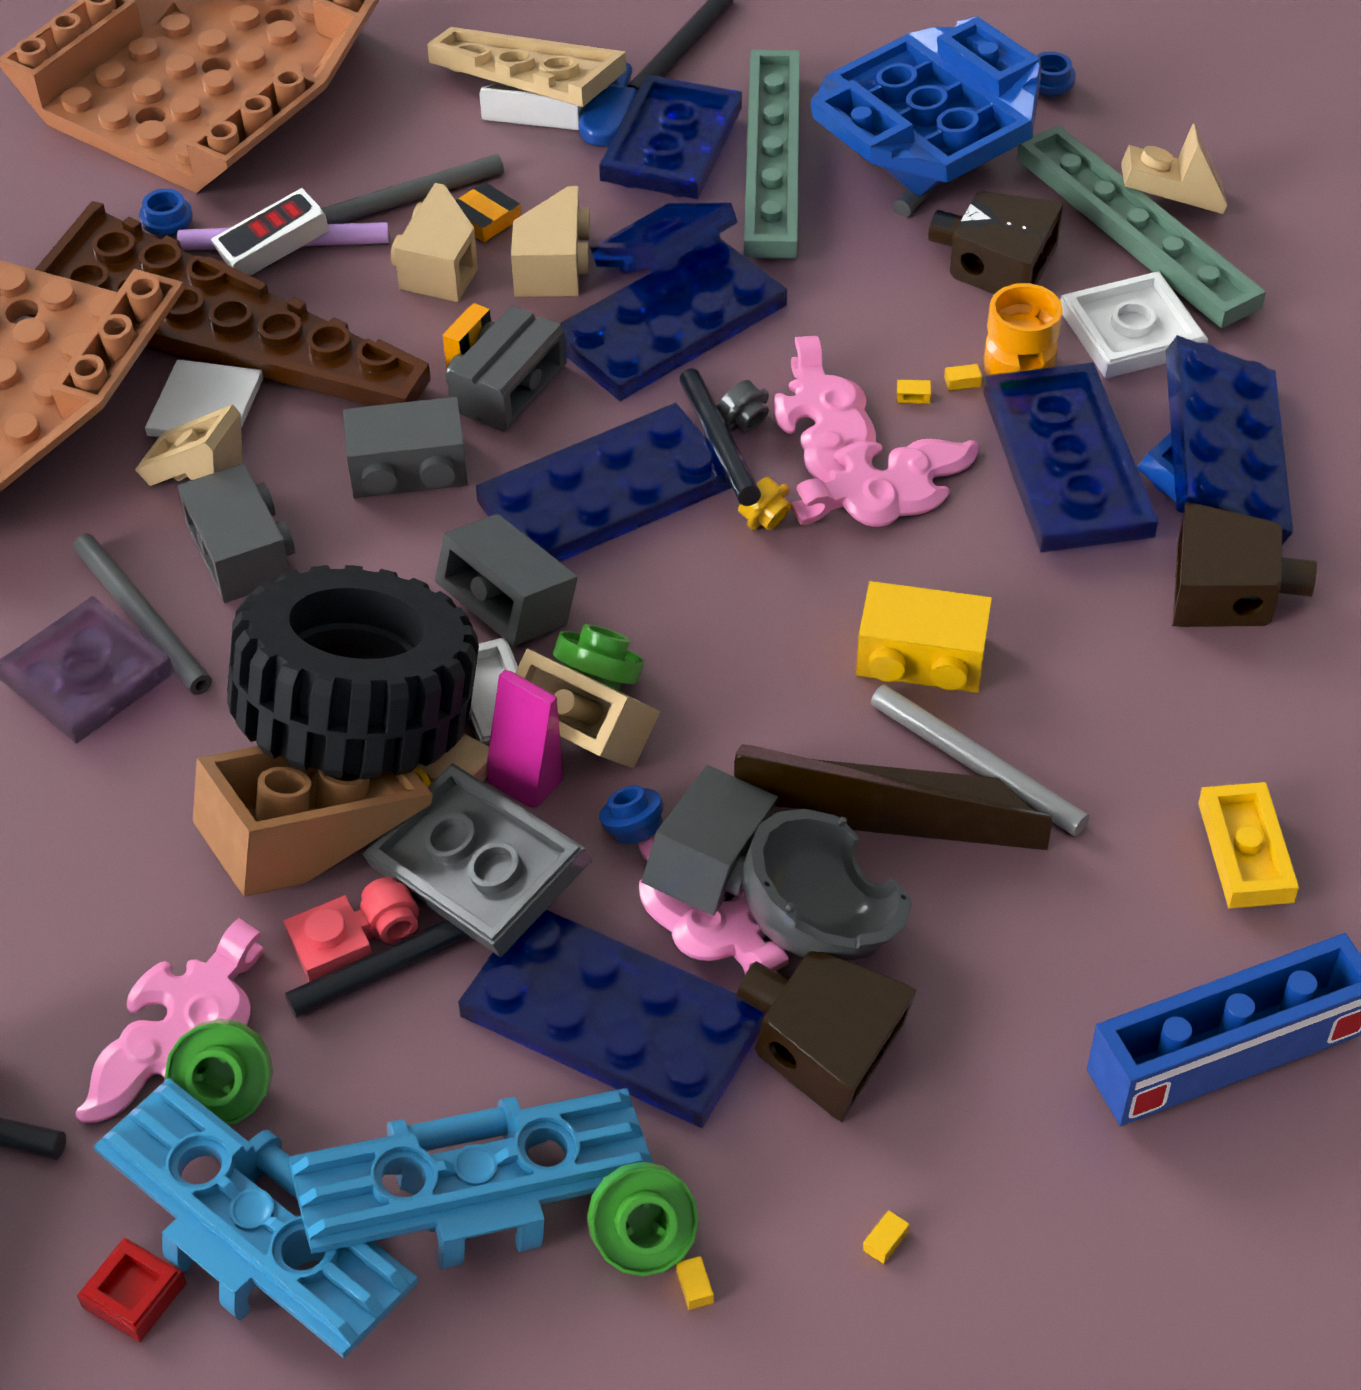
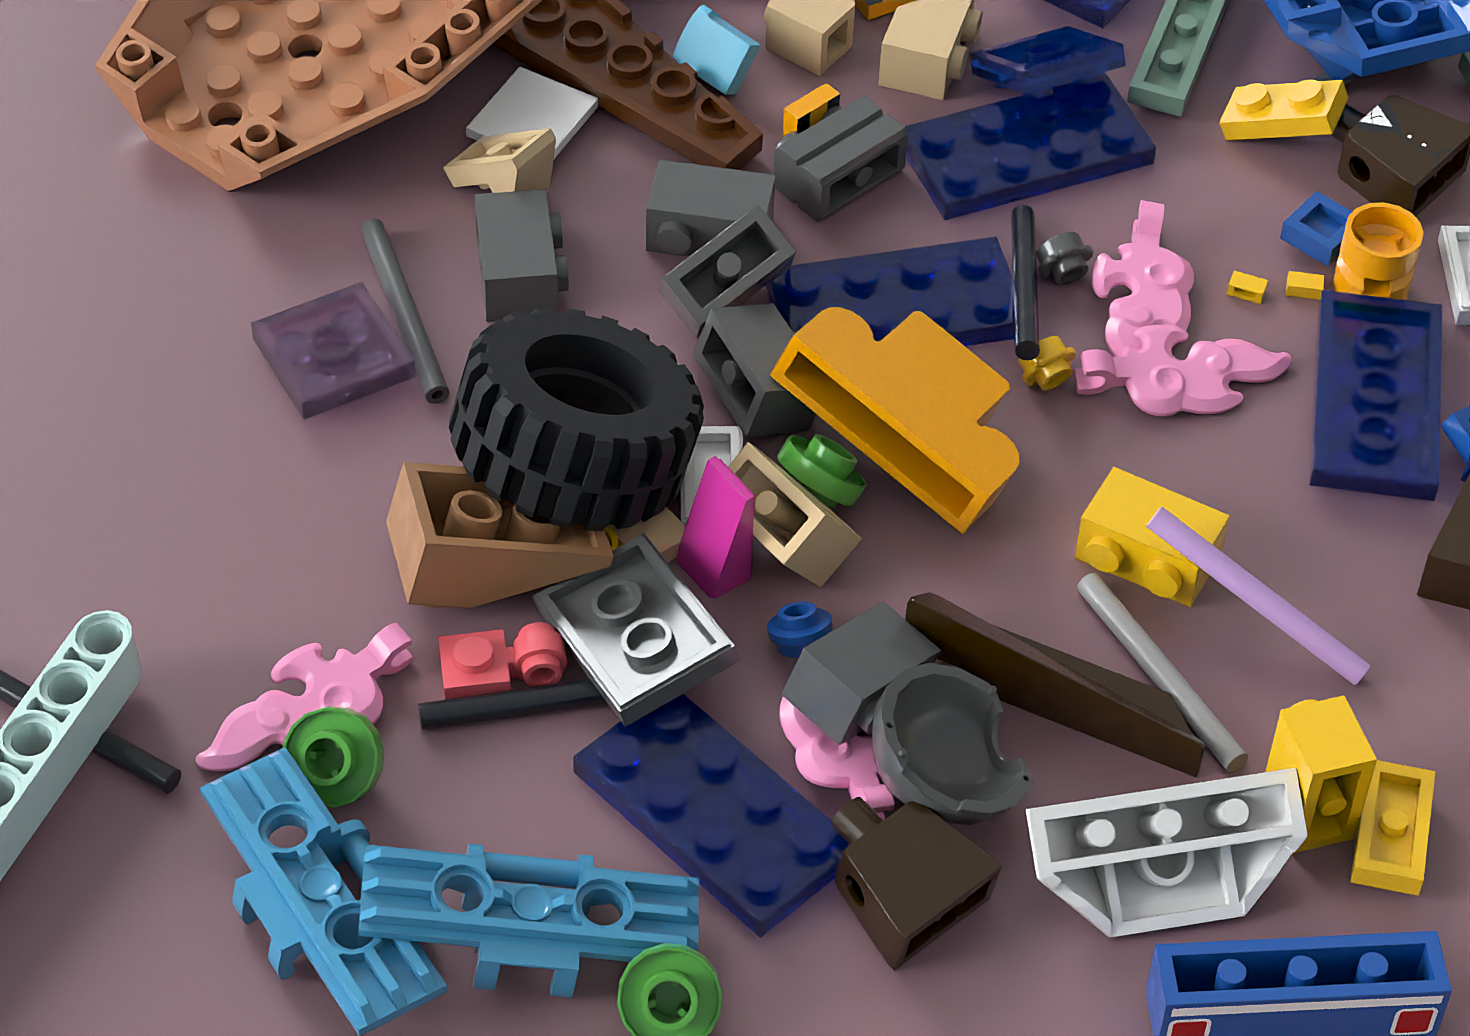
camera: 15 degrees right, 0 degrees up
(131, 1289) = (196, 924): red tile -> none
(358, 299) = (716, 50): none -> medium azure tile
(444, 494) = (727, 269): none -> dark grey brick
(659, 575) = (908, 405): none -> light orange brick
(887, 228) = (1284, 110): none -> yellow plate
(958, 323) = (1317, 228): none -> blue plate
(1044, 664) = (1258, 595): none -> lavender bar
(1062, 926) = (1169, 851): none -> white wedge
(1169, 814) = (1331, 766): none -> yellow brick

